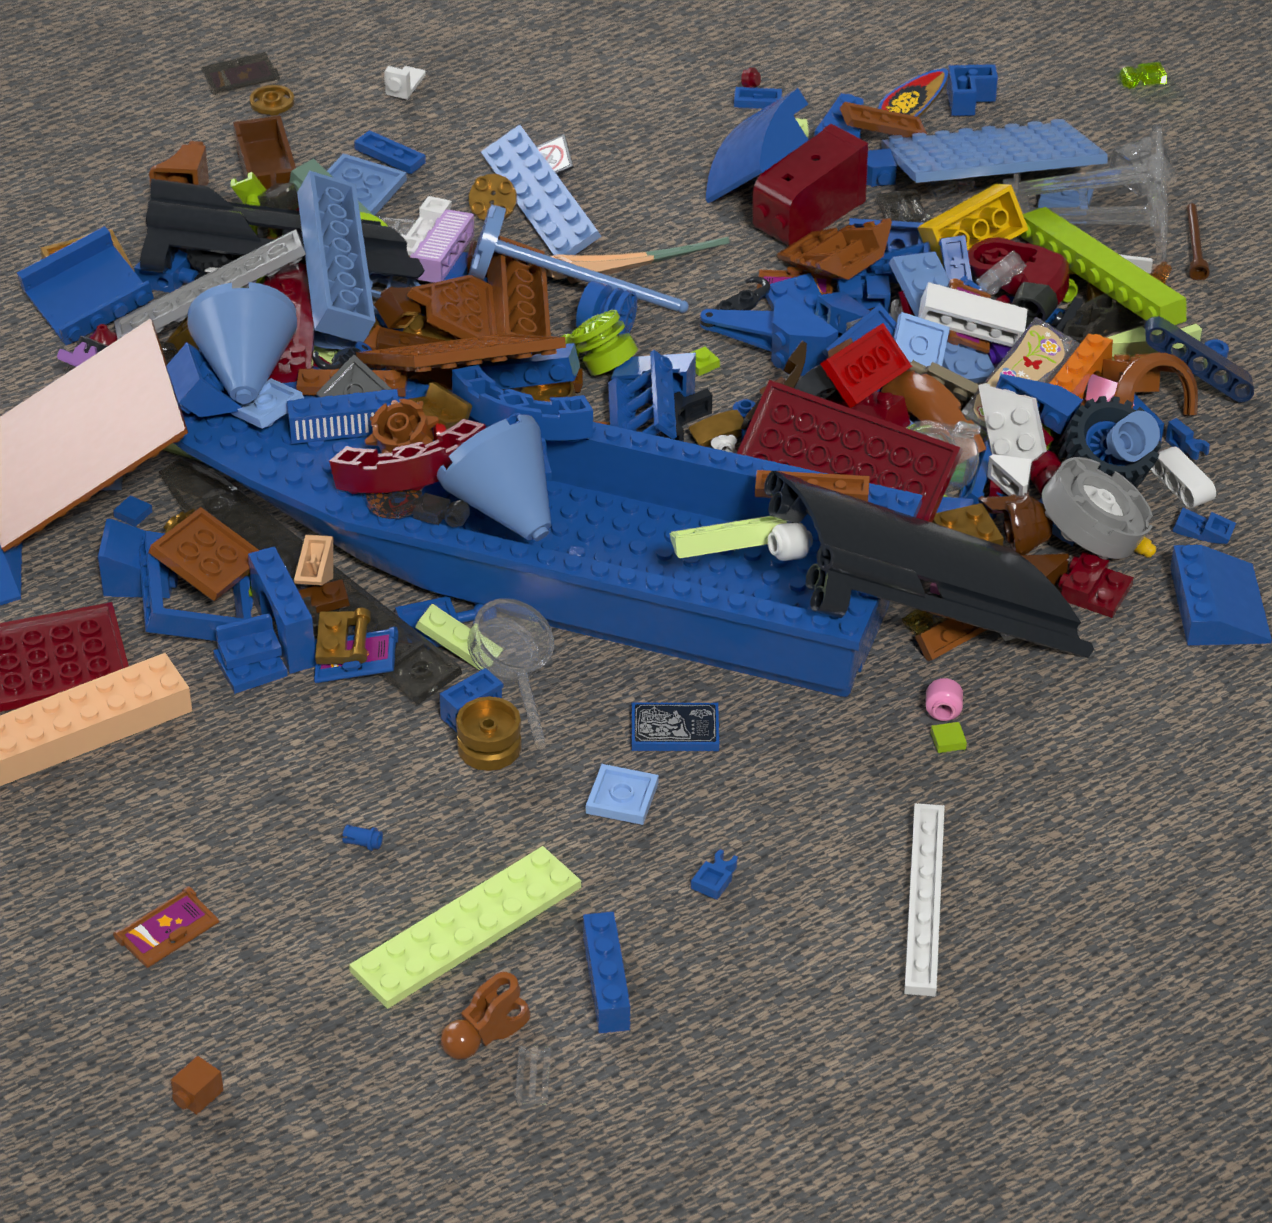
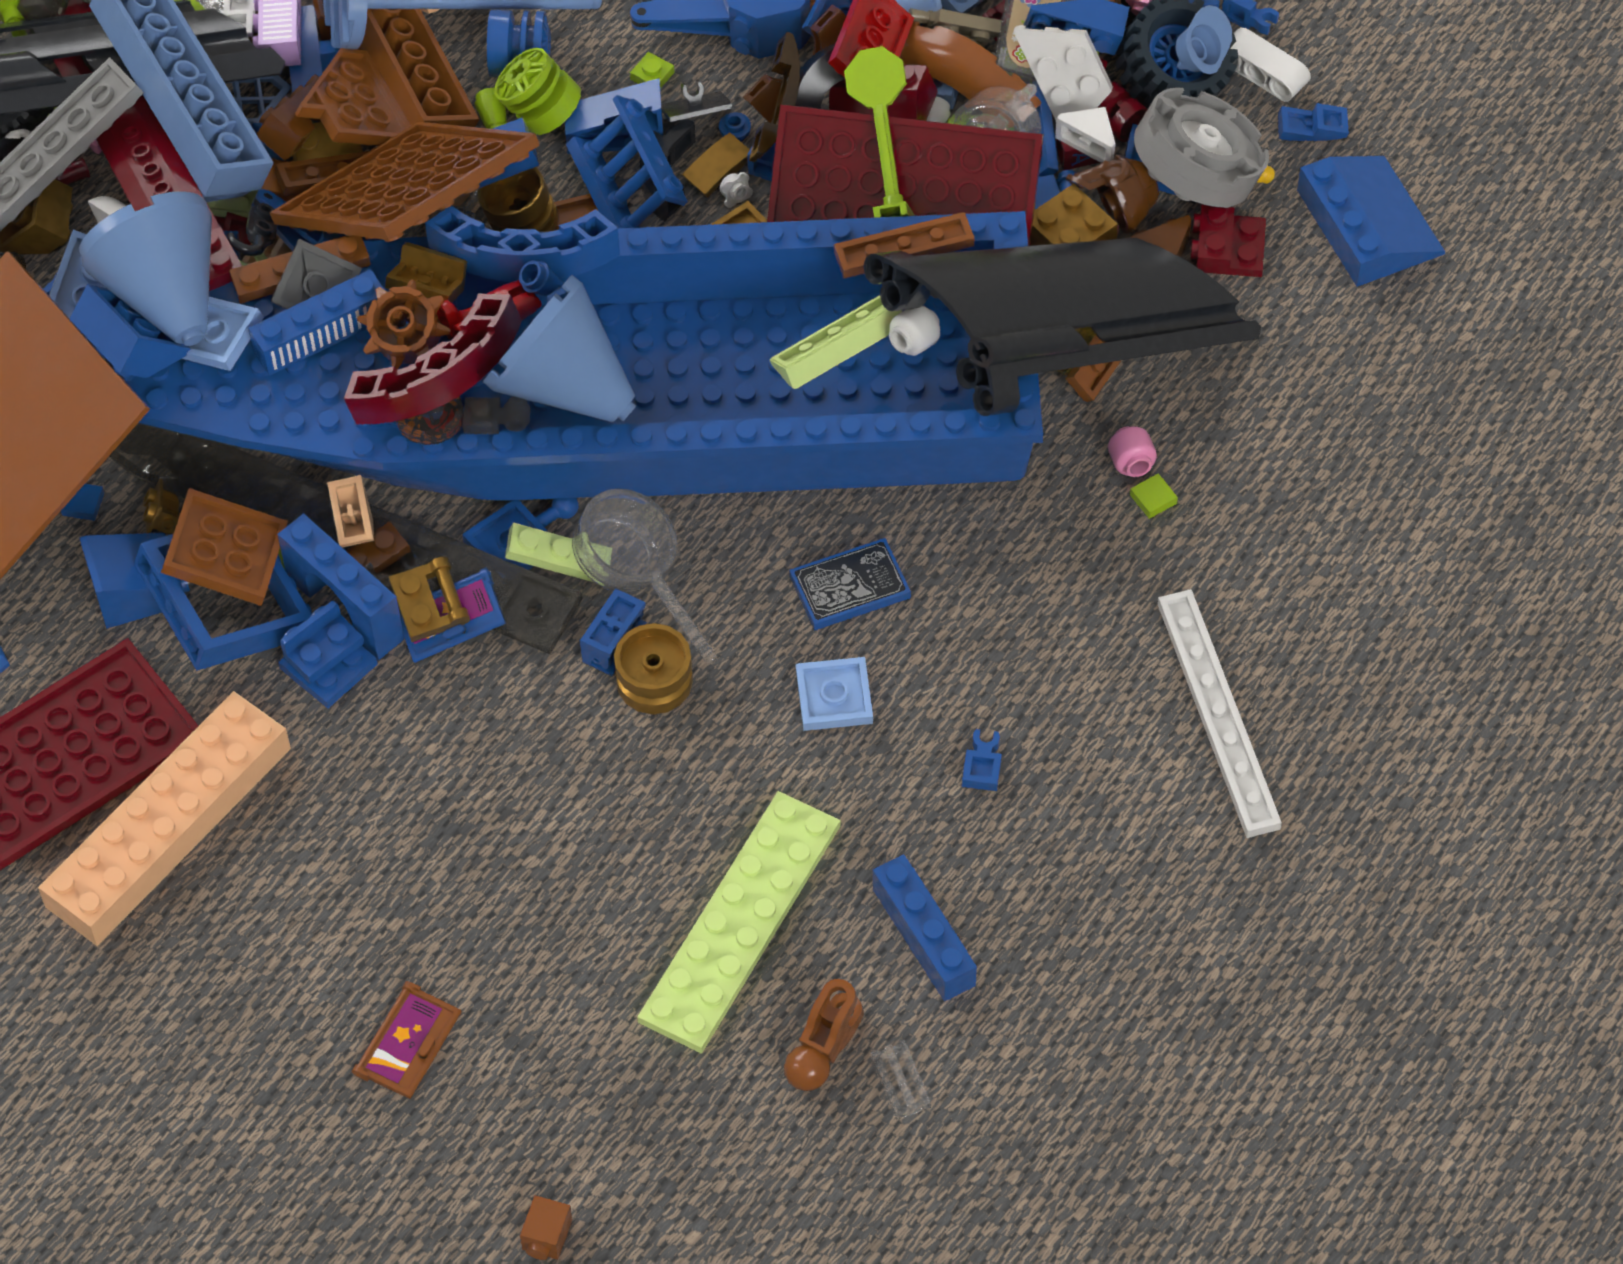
camera: 20 degrees left, 15 degrees up
(364, 837) = (572, 849): blue pin -> none
(721, 382) = (695, 104): none -> black piece
(844, 379) = (875, 81): none -> lime piece

